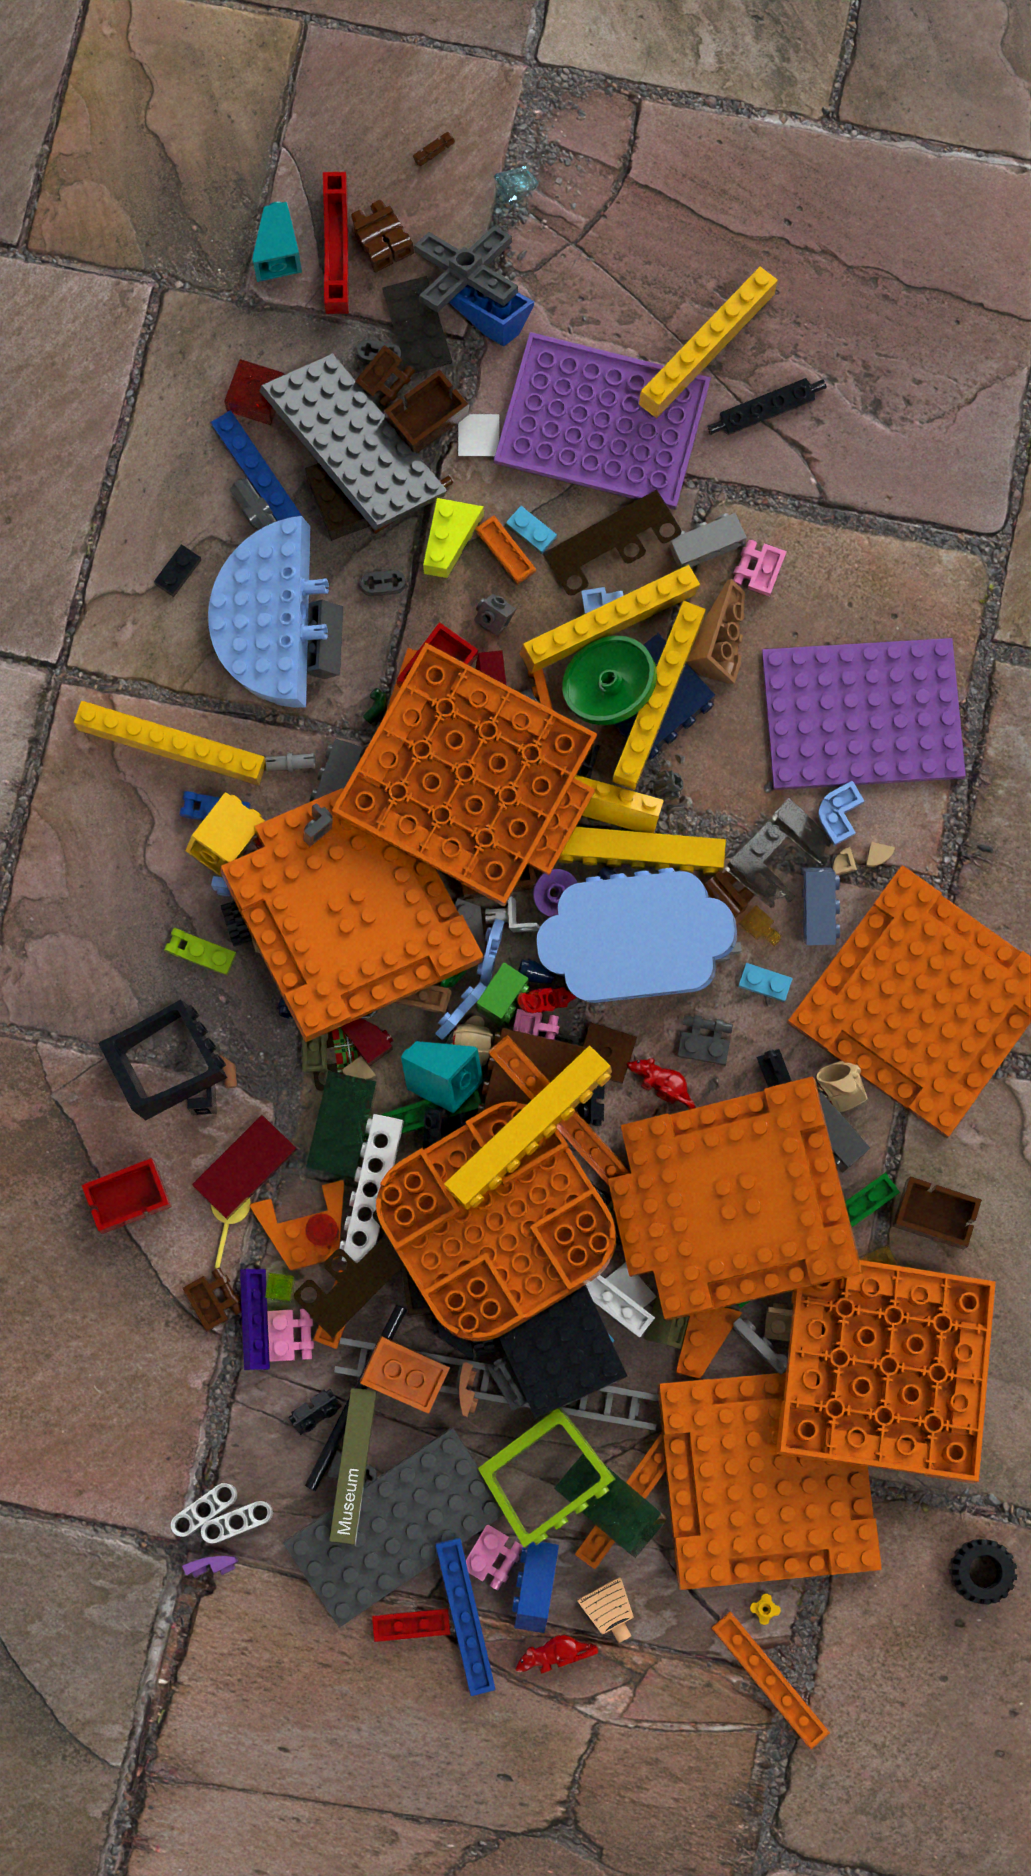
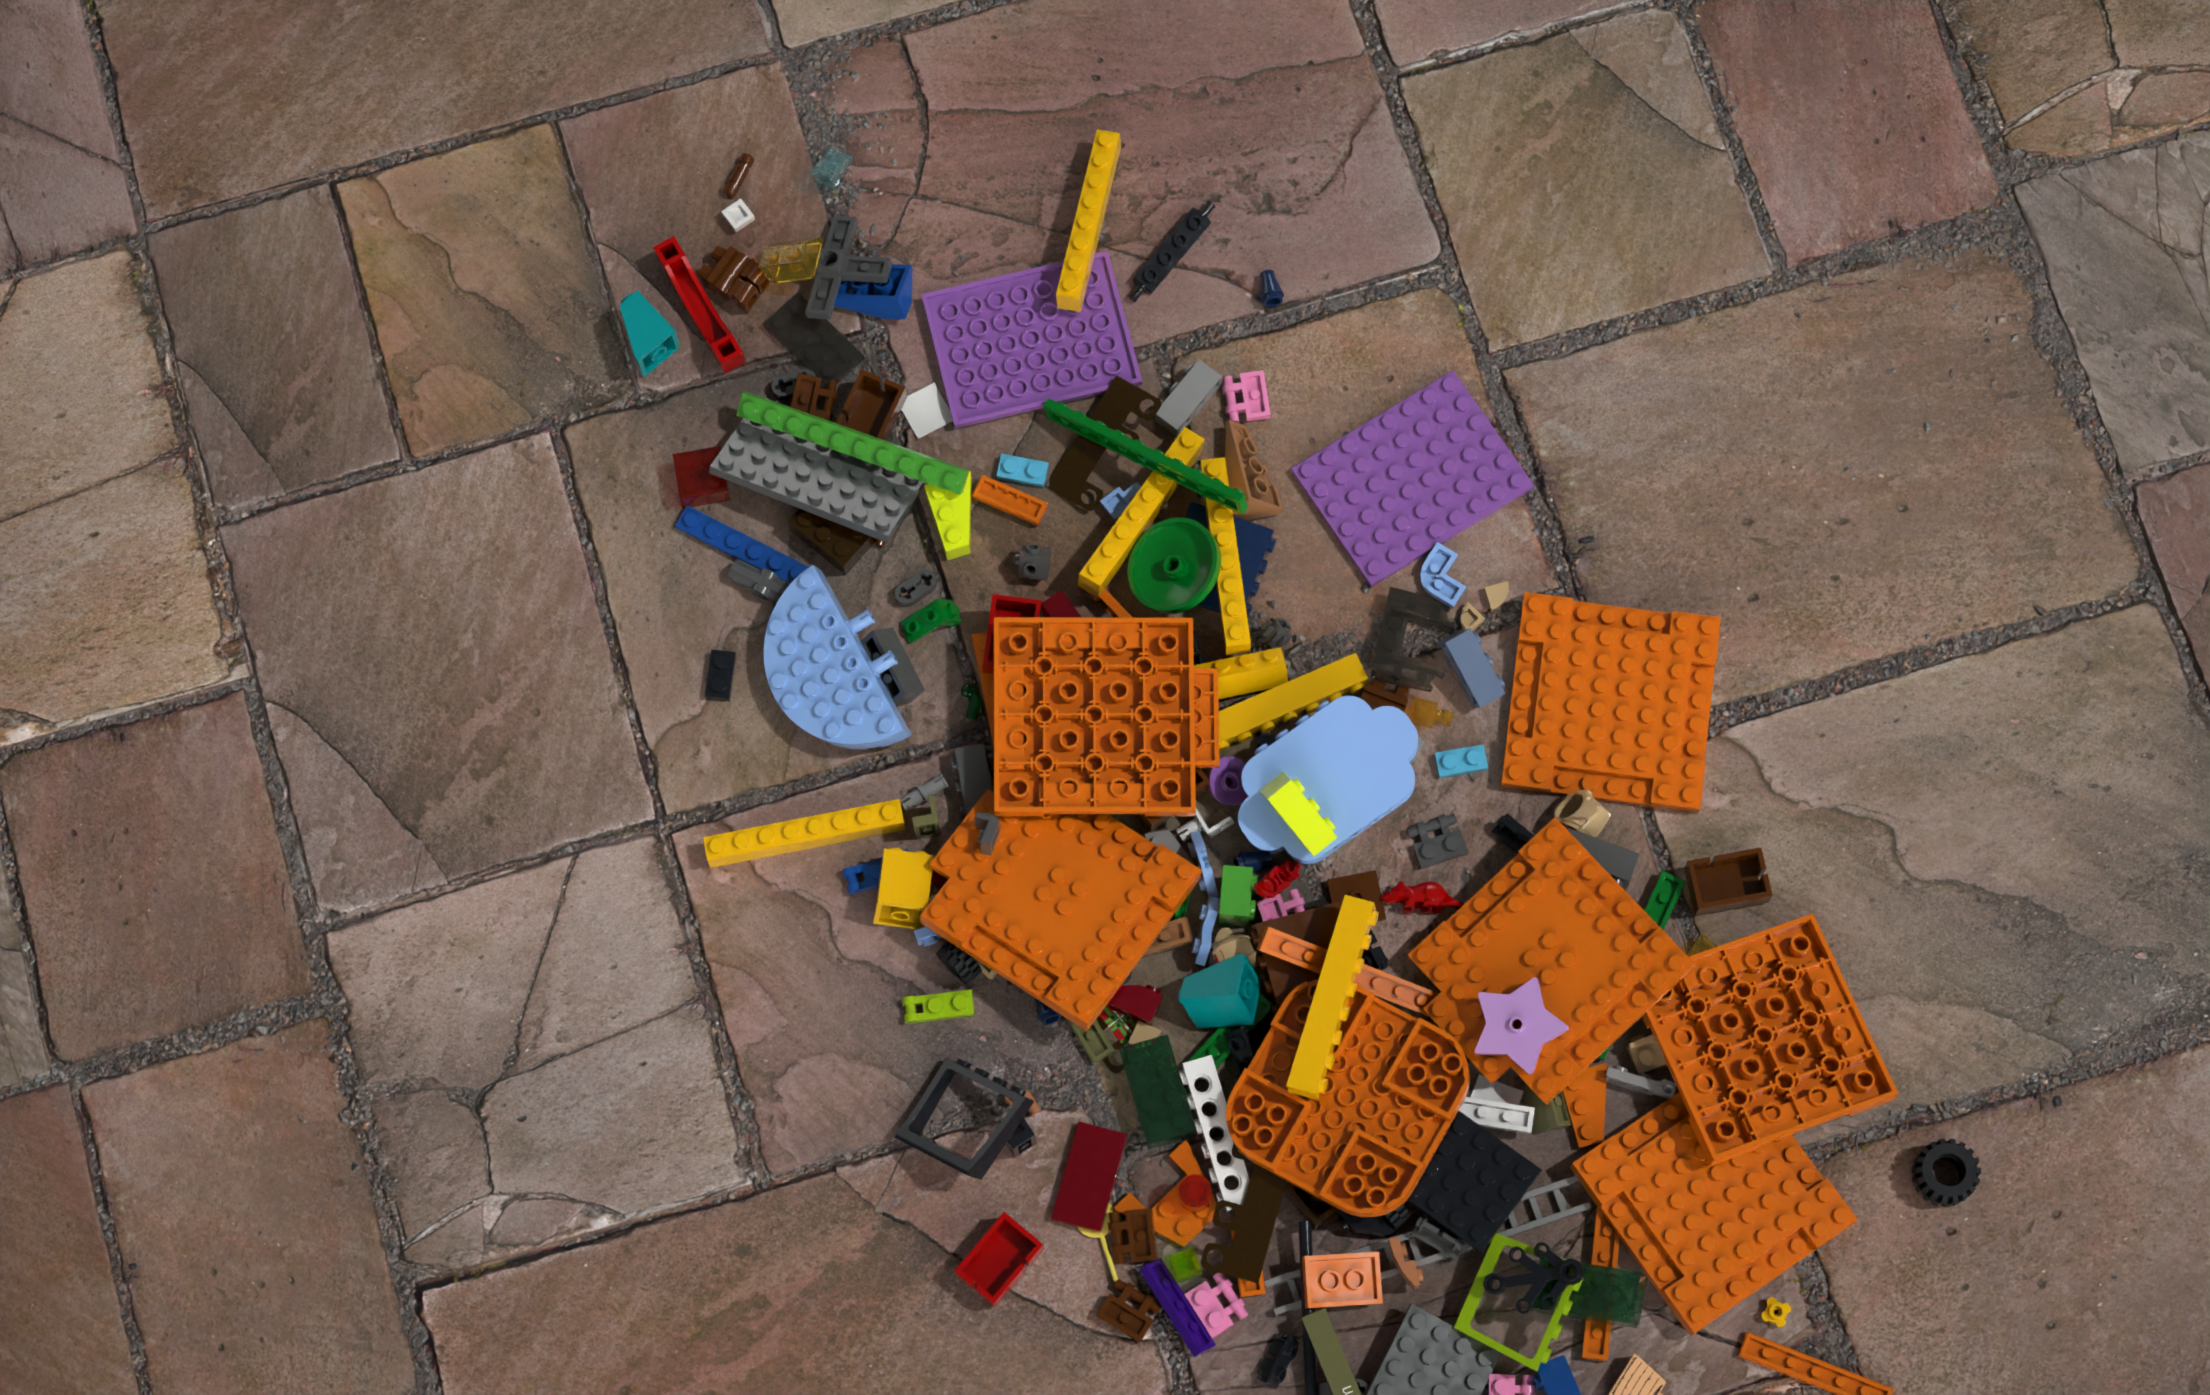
camera: 25 degrees left, 5 degrees down
(258, 1240) = (1140, 1234): none -> reddish brown plate
(278, 792) = (928, 824): none -> olive panel
(381, 615) = (930, 618): none -> green bracket
(396, 429) = (852, 443): none -> bright green plate
(413, 183) = (738, 215): none -> white plate
(433, 243) = (791, 260): none -> clear yellow slope
(571, 1467) = (1538, 1277): none -> black plant
(591, 953) = (1299, 813): none -> neon yellow wedge
(640, 575) = (1152, 459): none -> green plate
(691, 1252) = (1520, 1044): none -> lavender plate
(833, 484) = (1270, 289): none -> dark blue cone

